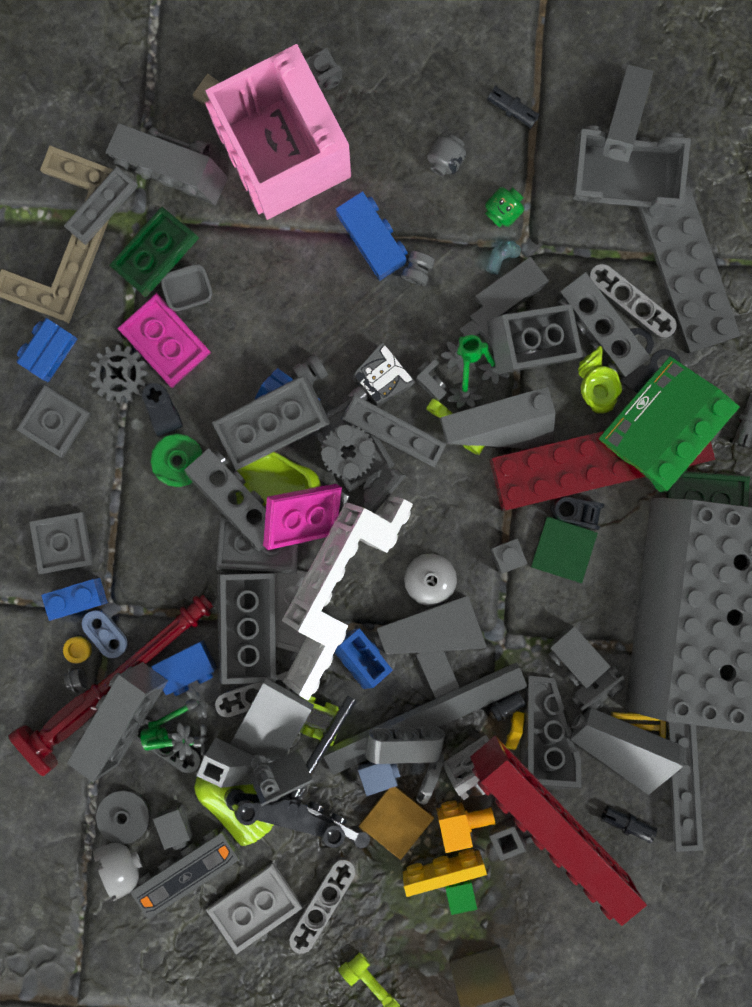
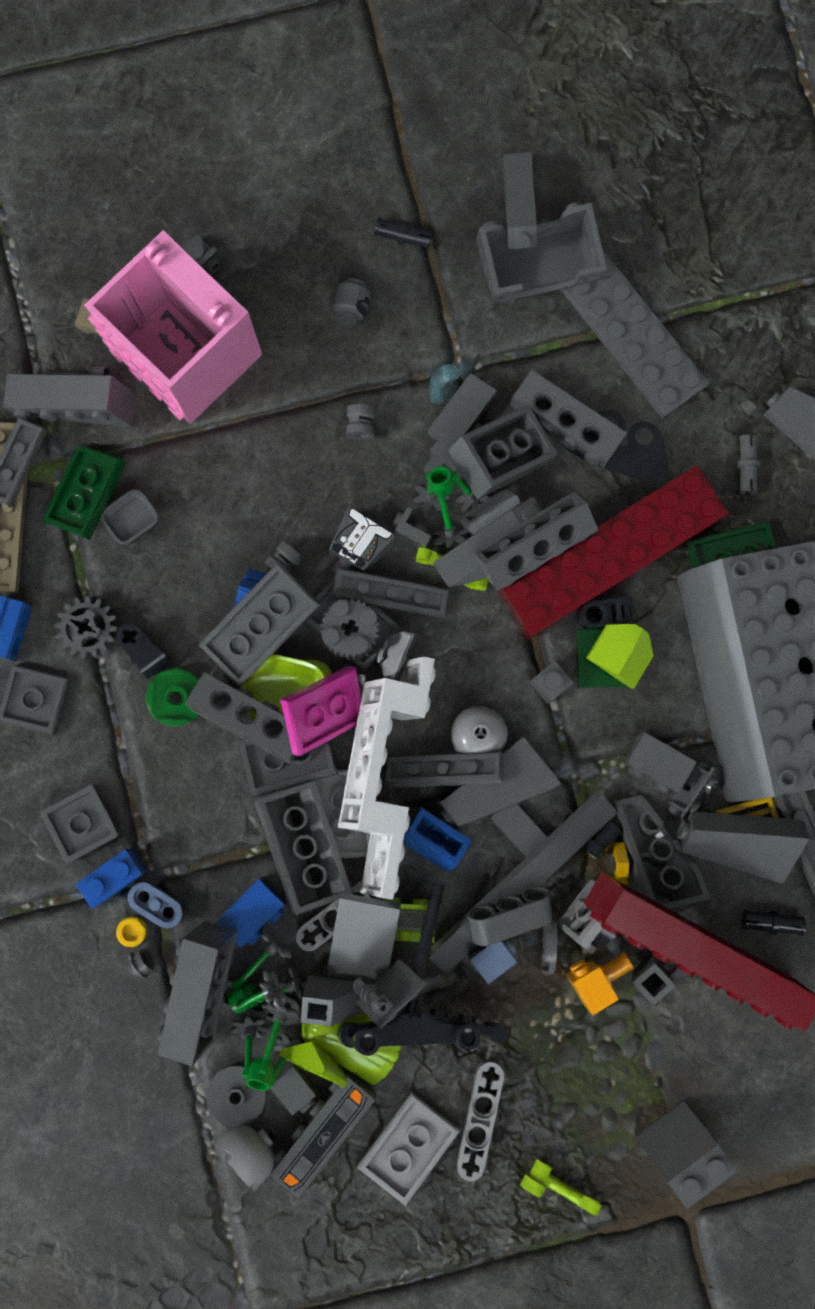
camera: 15 degrees left, 5 degrees down
(38, 745) = (122, 1046): dark red piece -> none
(149, 807) = (261, 1074): none -> plant
(164, 340) = (123, 579): dark pink tile -> none
(199, 811) = (315, 1060): none -> lime slope
(372, 235) = (302, 404): blue brick -> none
(390, 601) = (444, 770): none -> dark grey tile
(396, 821) = (528, 1002): pearl gold tile -> none
(443, 872) = (597, 1039): yellow plate -> none
(461, 897) = (624, 1061): green tile -> none
(504, 207) = (427, 332): green head -> none
(505, 387) = (489, 510): none -> dark grey tile
(537, 429) = (545, 528): none -> dark grey brick
(579, 550) = (623, 652): none -> lime slope
(599, 383) = (583, 475): lime hair -> none
(635, 297) = (590, 380): light grey beam -> none
(668, 423) = (669, 490): green piece -> none

